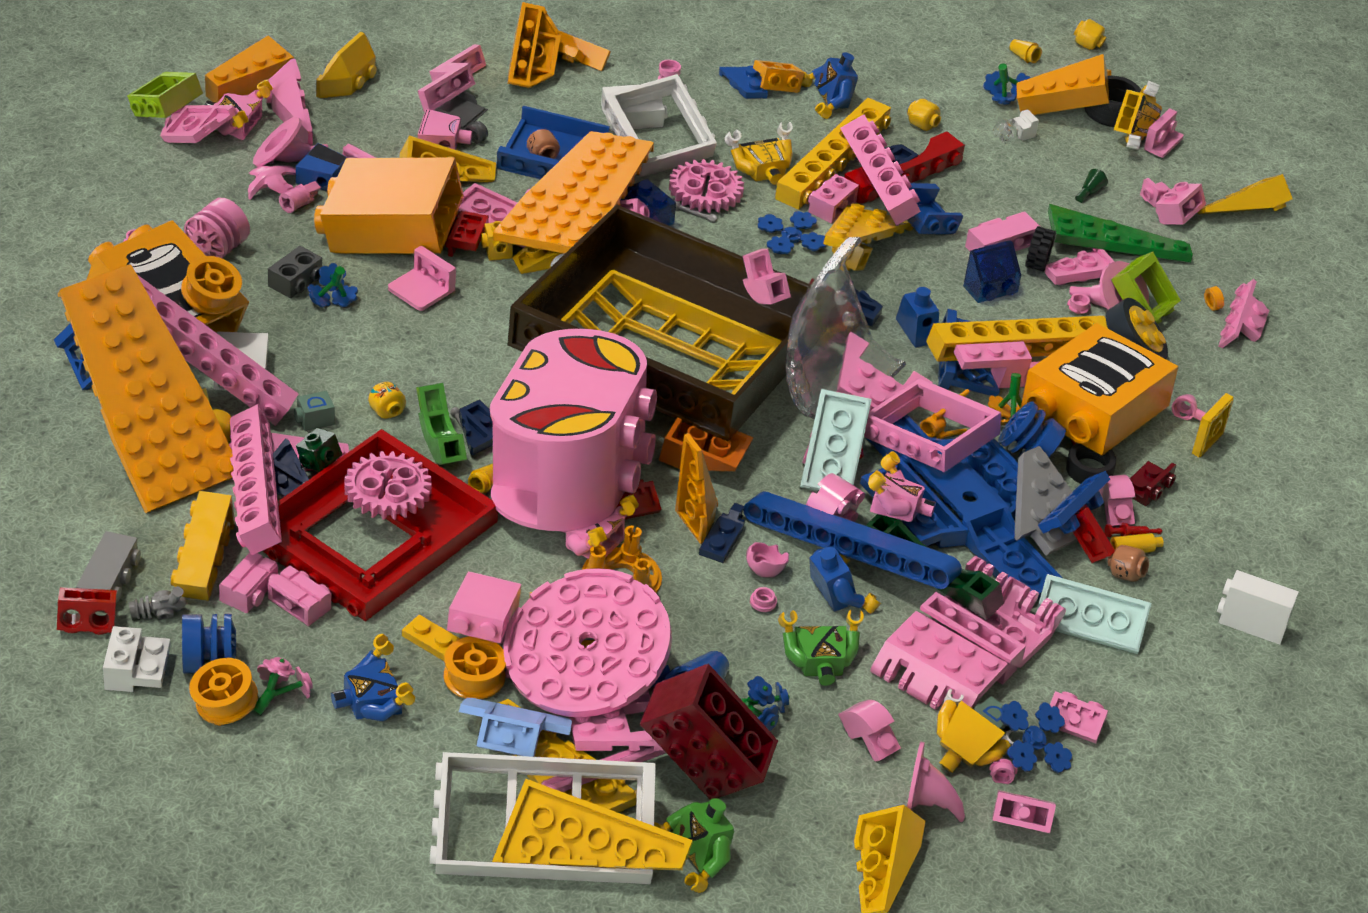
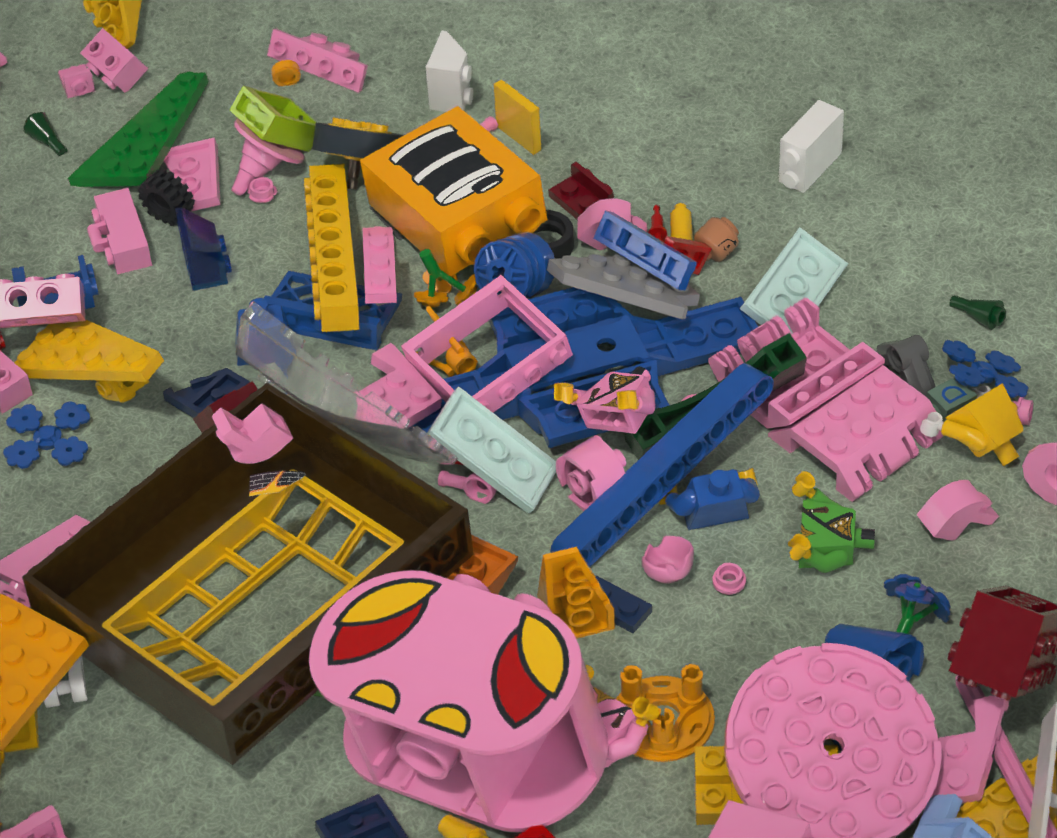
camera: 70 degrees left, 5 degrees up
(733, 304) = (273, 481): none -> sticker
(1020, 680) = (909, 359): none -> dark grey piece
(1080, 718) = (948, 324): bright pink bracket -> none
(1112, 743) = (987, 312): none -> dark green cone
(1246, 378) = (448, 75): none -> white slope

